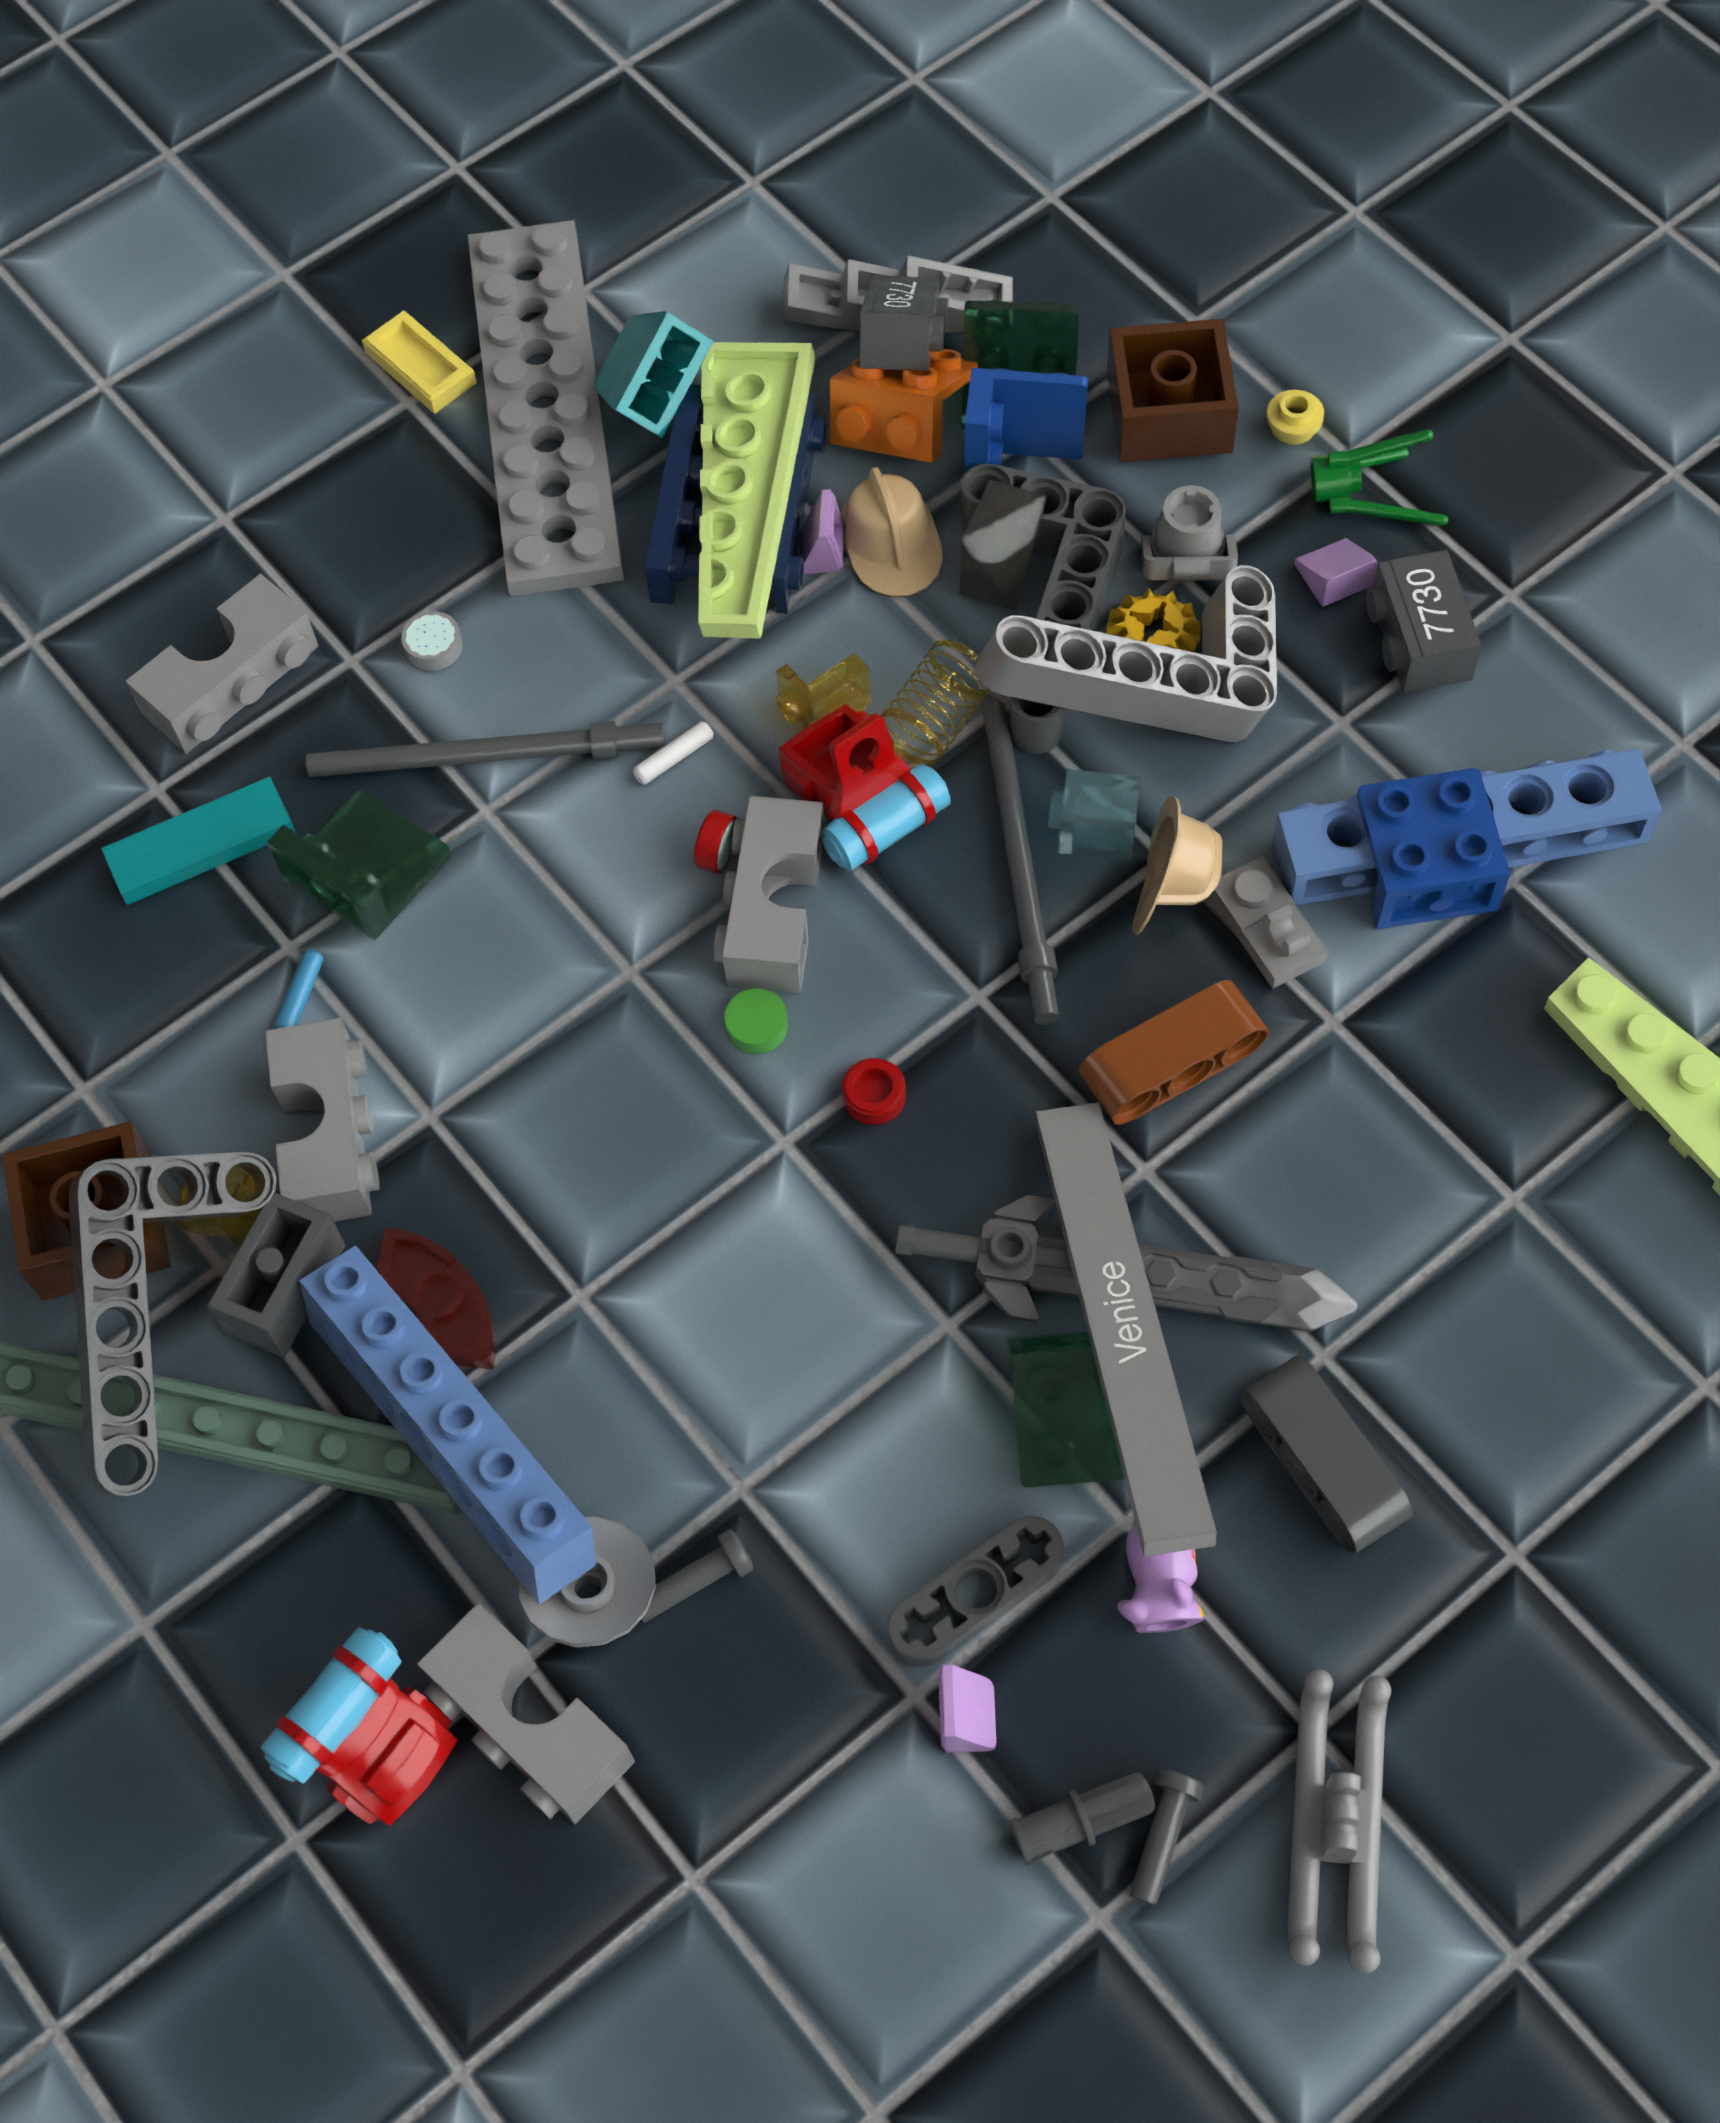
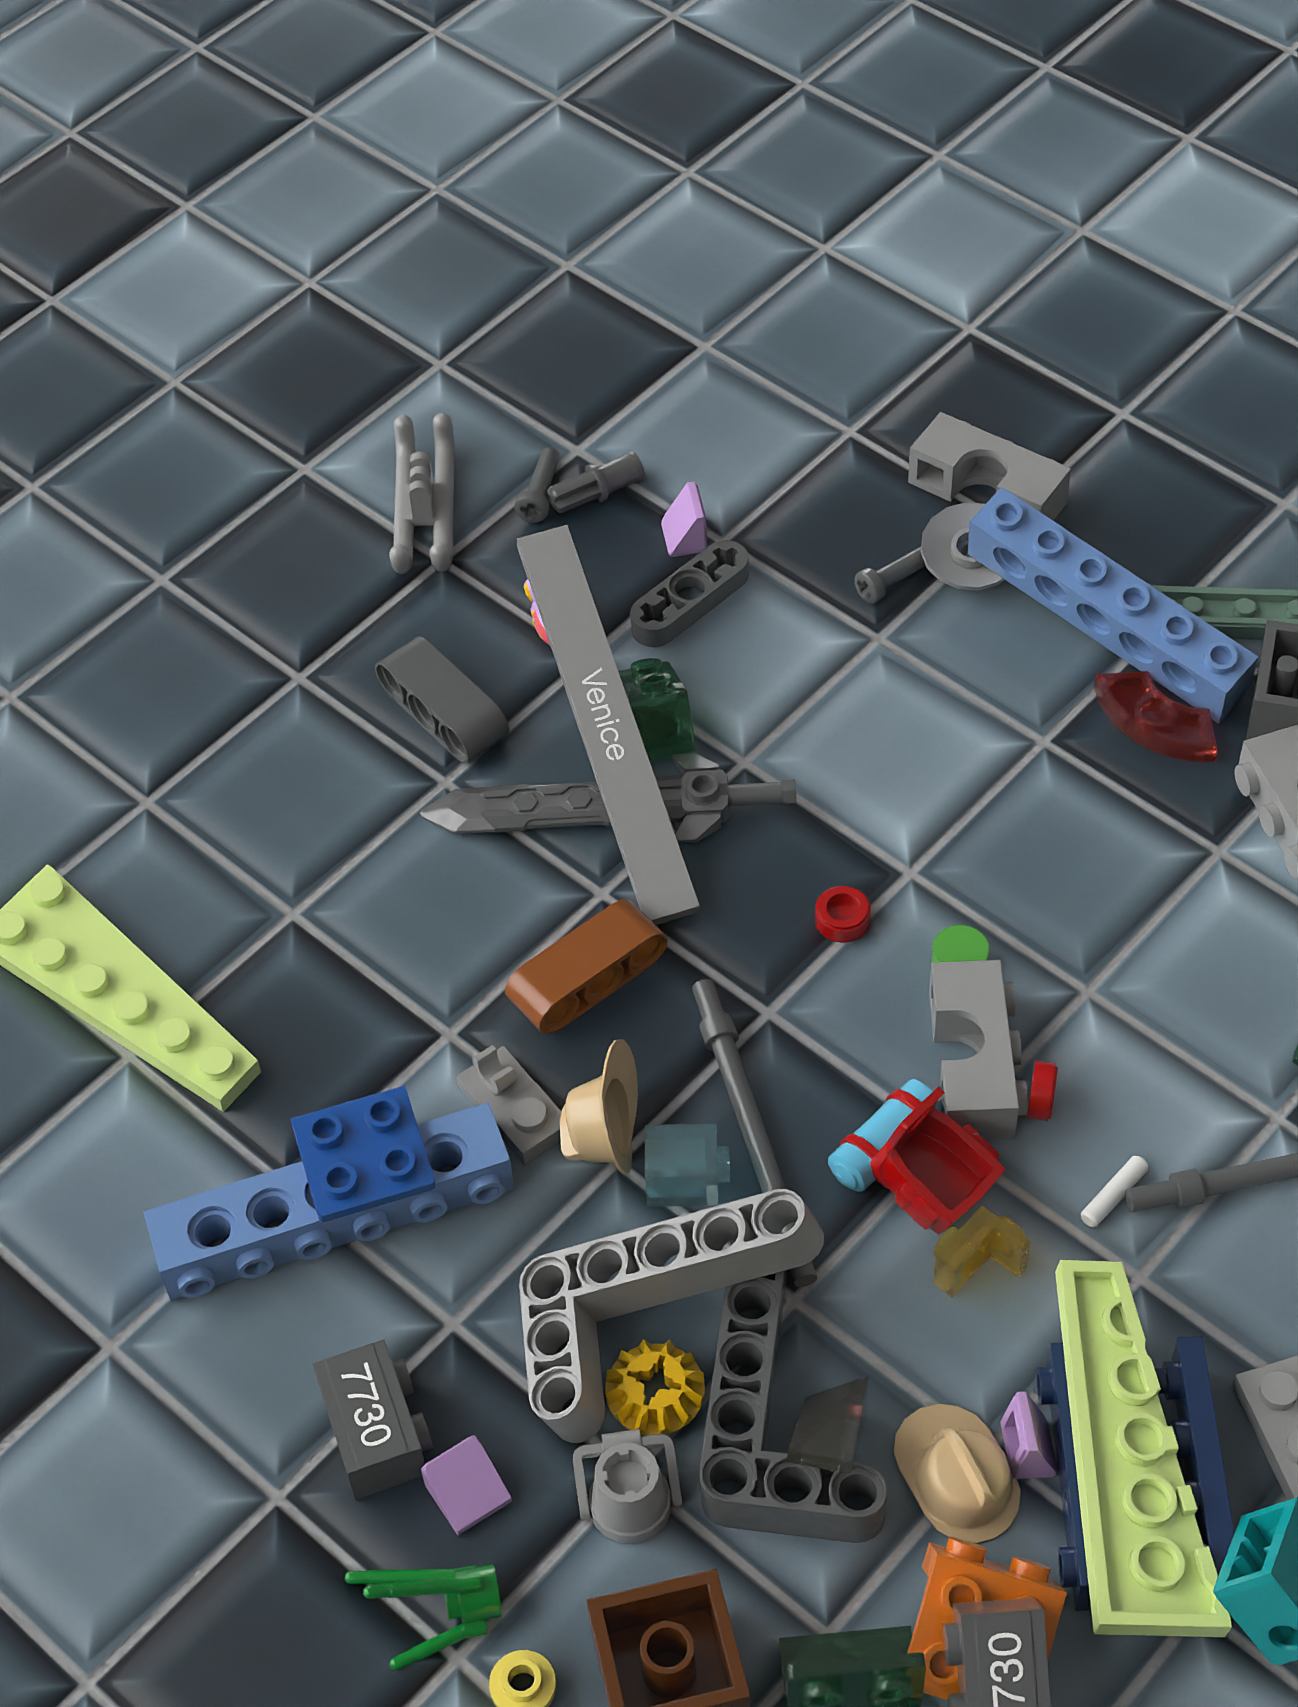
camera: 170 degrees right, 10 degrees down
(363, 1732) = (1100, 428): red piece -> none
(955, 685) = (877, 1226): clear yellow piece -> none
(1023, 415) = (839, 1588): blue bracket -> none

